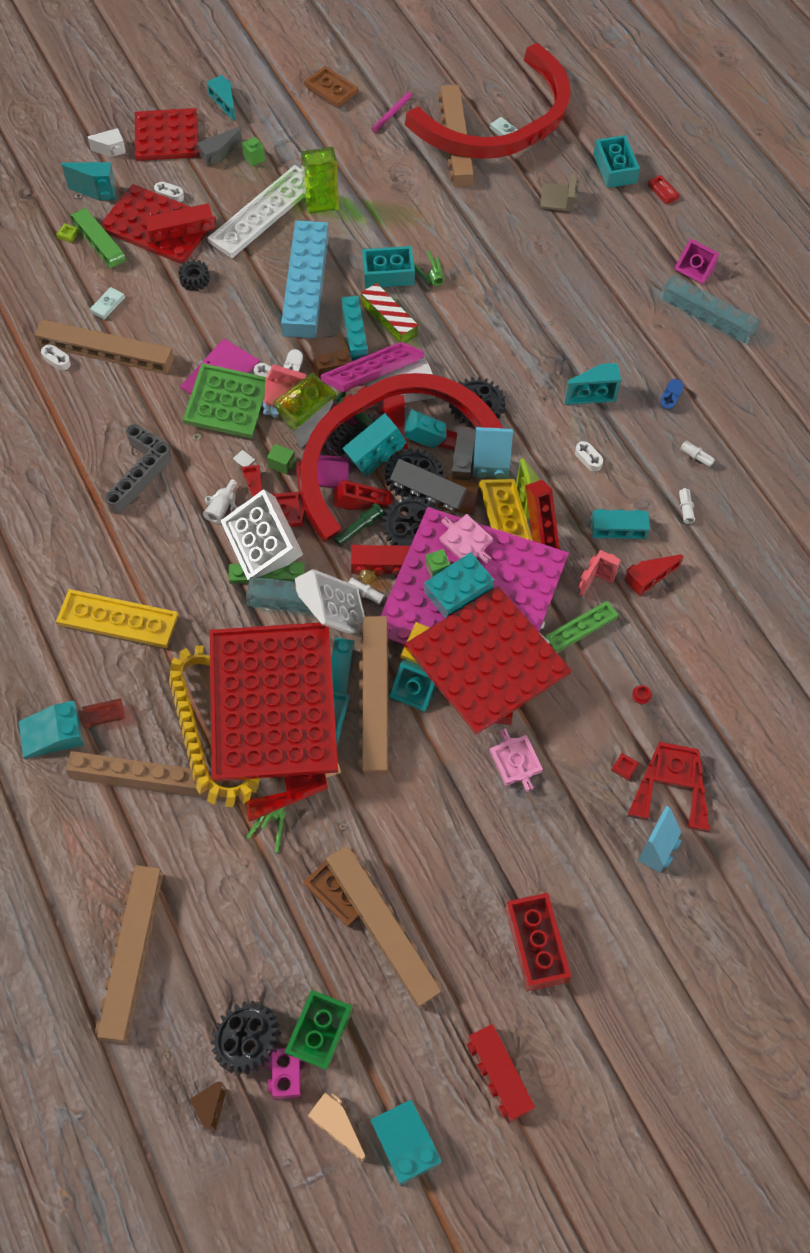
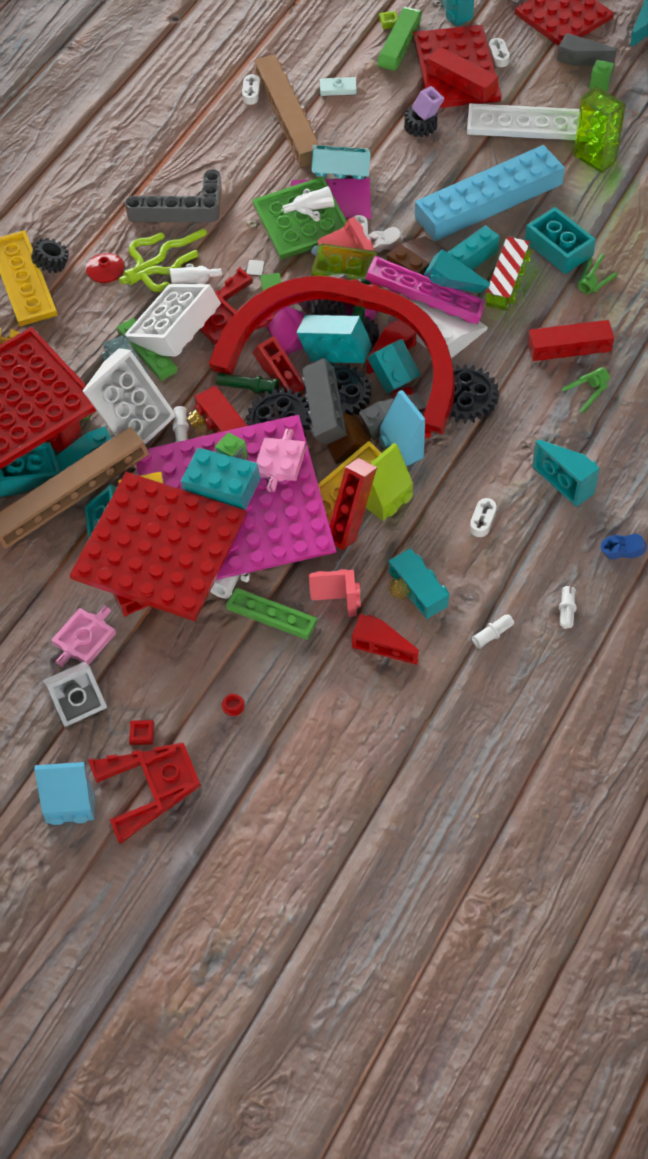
camera: 60 degrees right, 5 degrees down
(115, 585) = (49, 255): none -> black tyre
(157, 562) = (105, 267): none -> red dish
(184, 532) = (145, 269): none -> lime plant
(195, 257) = (427, 103): none -> lavender brick
(198, 343) = (340, 161): none -> brick
(226, 379) = (311, 201): none -> white piece
(372, 341) = (451, 273): none -> teal slope
(479, 317) = (570, 340): none -> red brick
(523, 323) = (596, 379): none -> bright green plant
(564, 792) = (75, 693): none -> light grey slope
(616, 538) = (398, 589): none -> clear yellow plate

